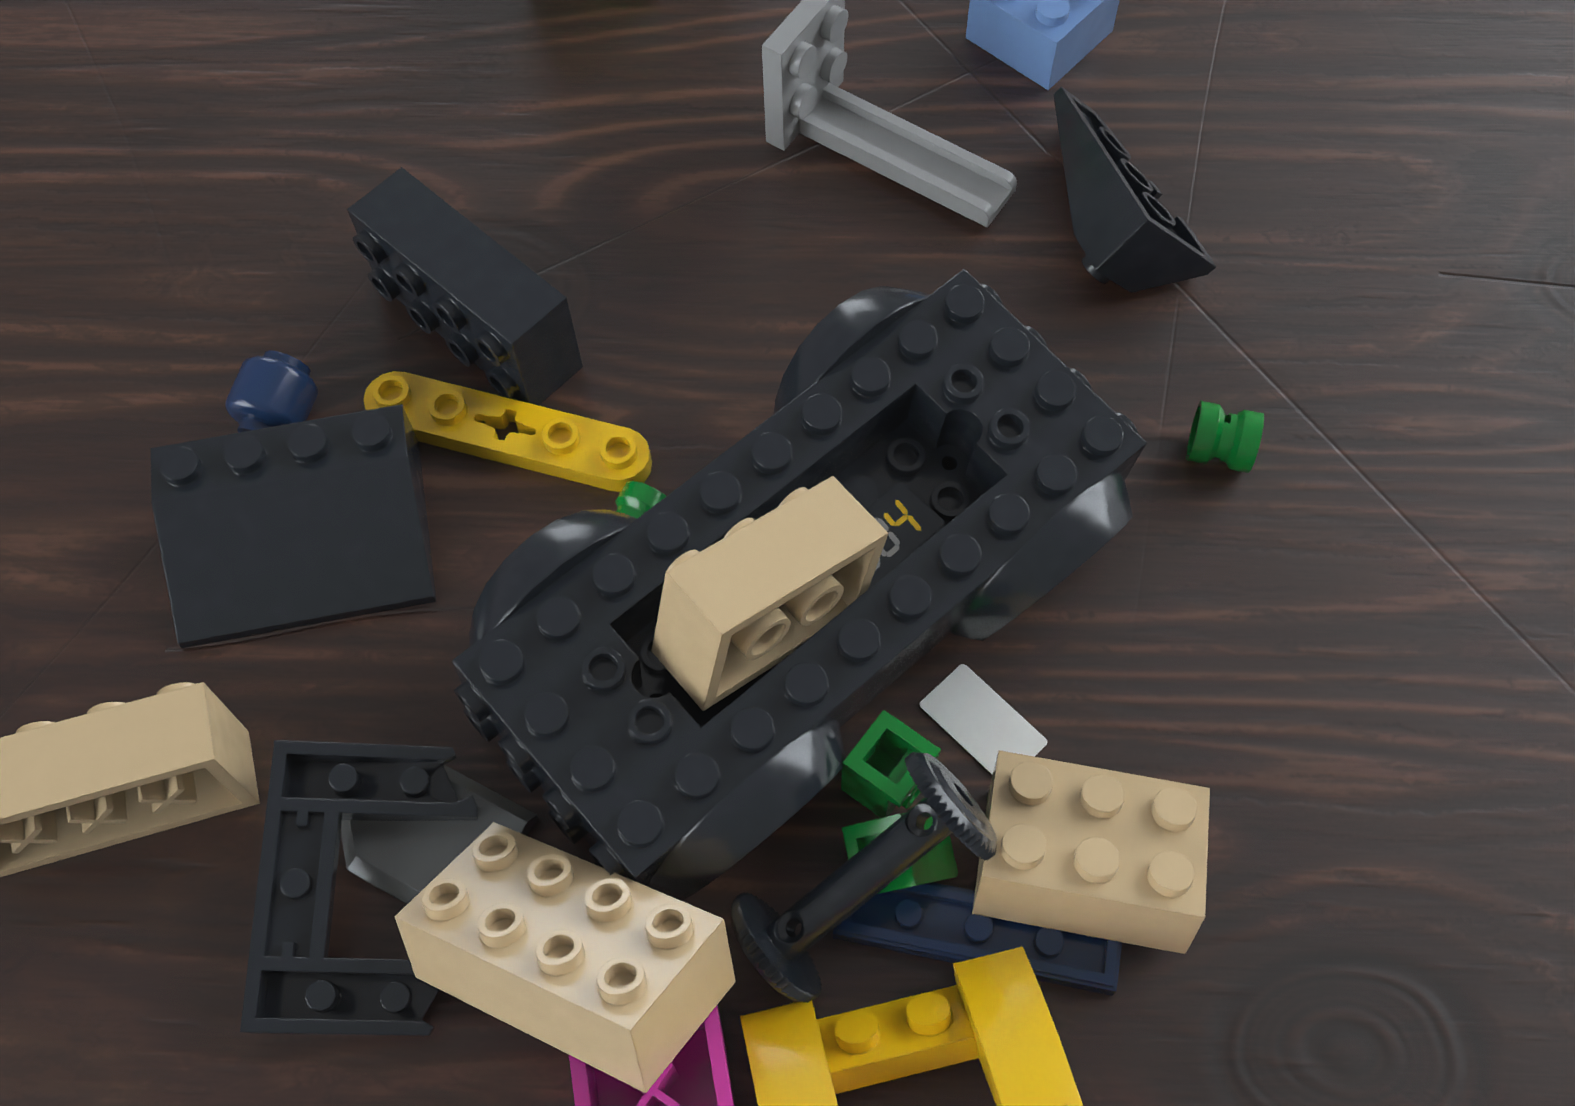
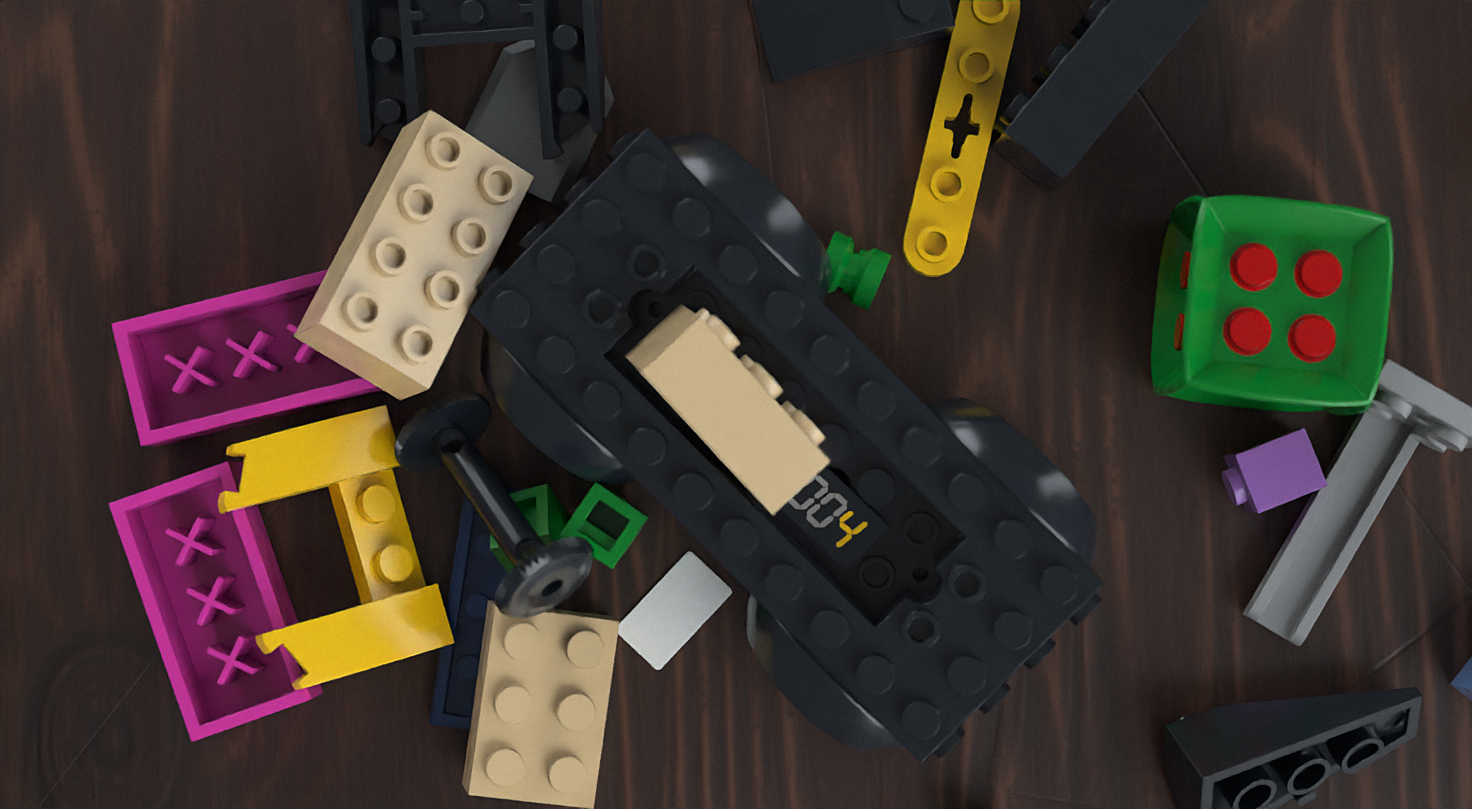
camera: 85 degrees right, 25 degrees up
(704, 156) = (1272, 304): none -> green piece
(857, 190) = (1273, 471): none -> medium lavender brick

